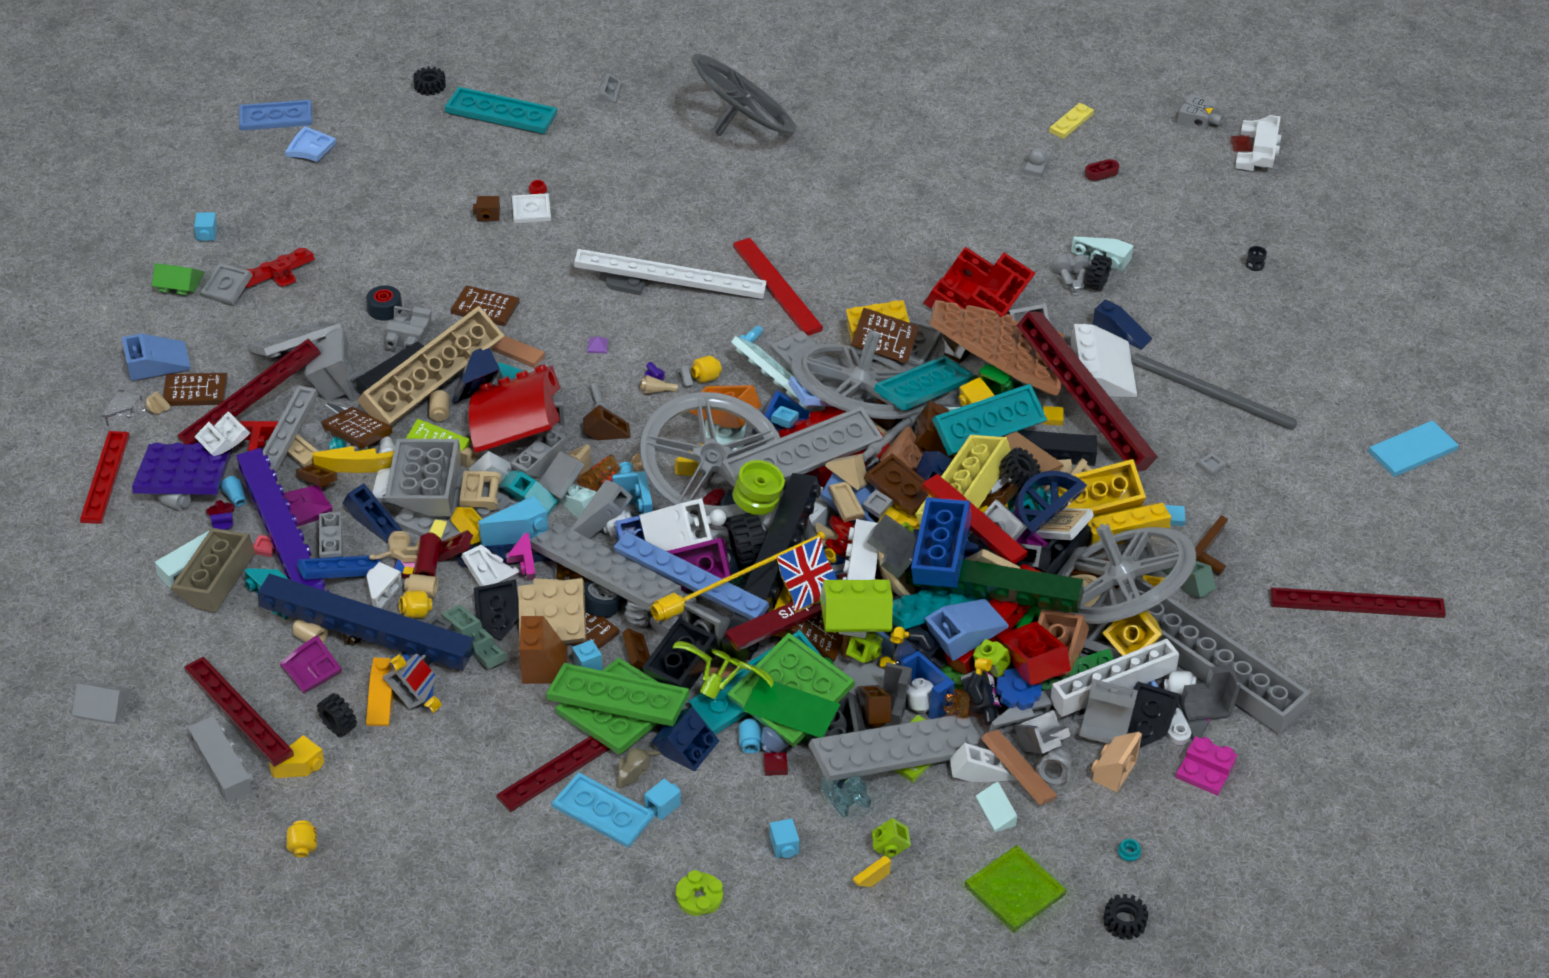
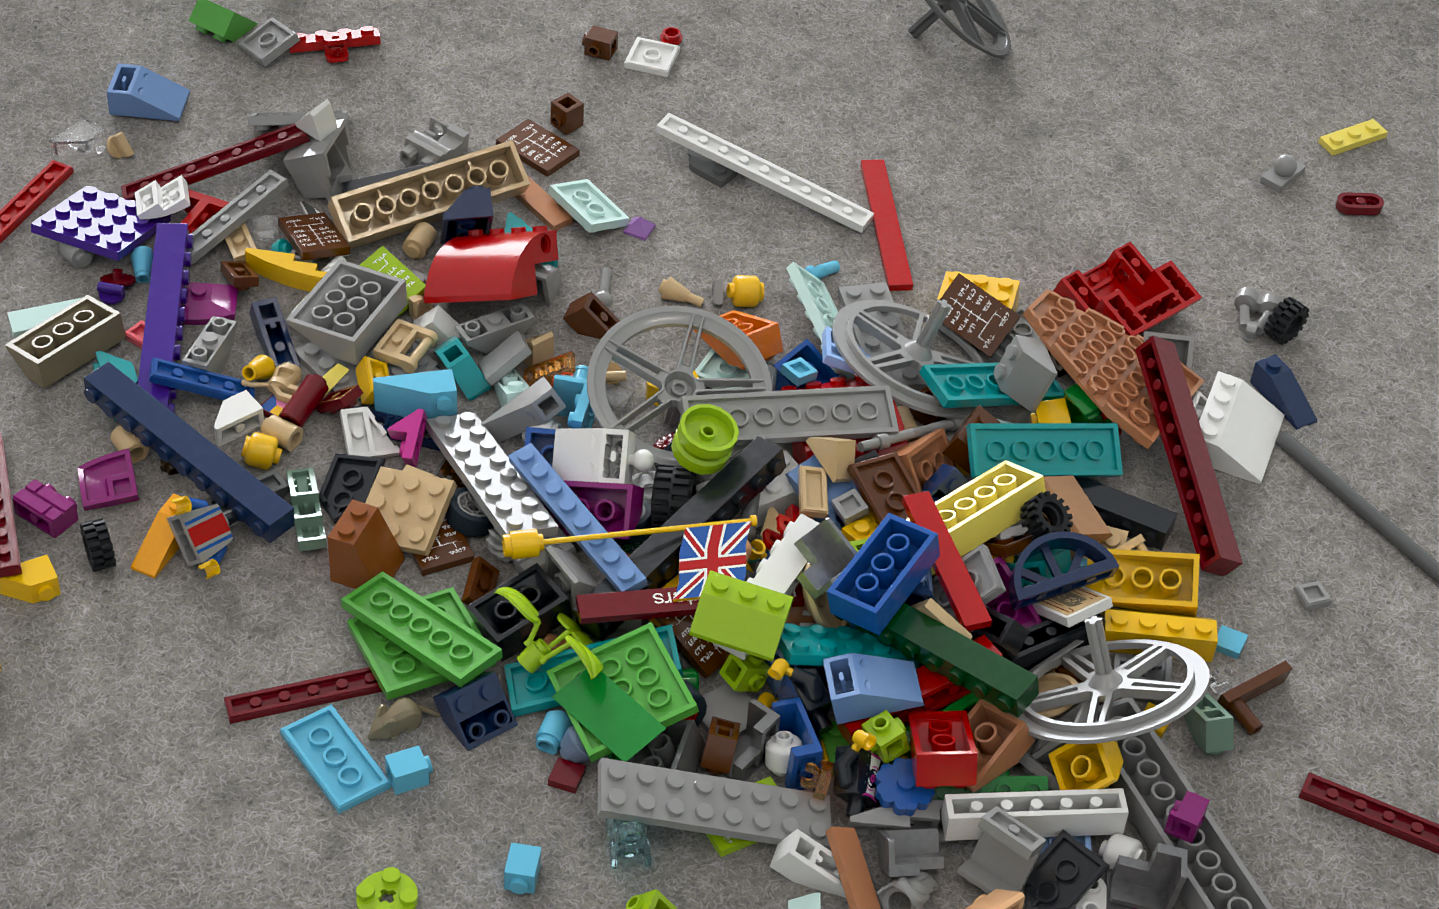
camera: 20 degrees right, 0 degrees up
(195, 389) = (170, 142): reddish brown tile -> none
(276, 701) = (45, 508): none -> magenta brick
(324, 335) = (319, 121): none -> white slope
(376, 542) = (259, 368): none -> yellow cone
(382, 301) = (422, 106): black wheel -> none
(496, 272) = (567, 113): none -> reddish brown brick
(552, 339) = (588, 205): none -> light aqua plate
(587, 655) = (416, 573): medium azure brick -> none
(654, 372) = (685, 278): dark purple plate -> none
(948, 366) = (1025, 371): none -> light grey slope
(1054, 415) = (1139, 473): yellow tile -> none
(1113, 248) = (1323, 303): light aqua slope -> none
(1217, 643) = (1187, 817): none -> magenta brick

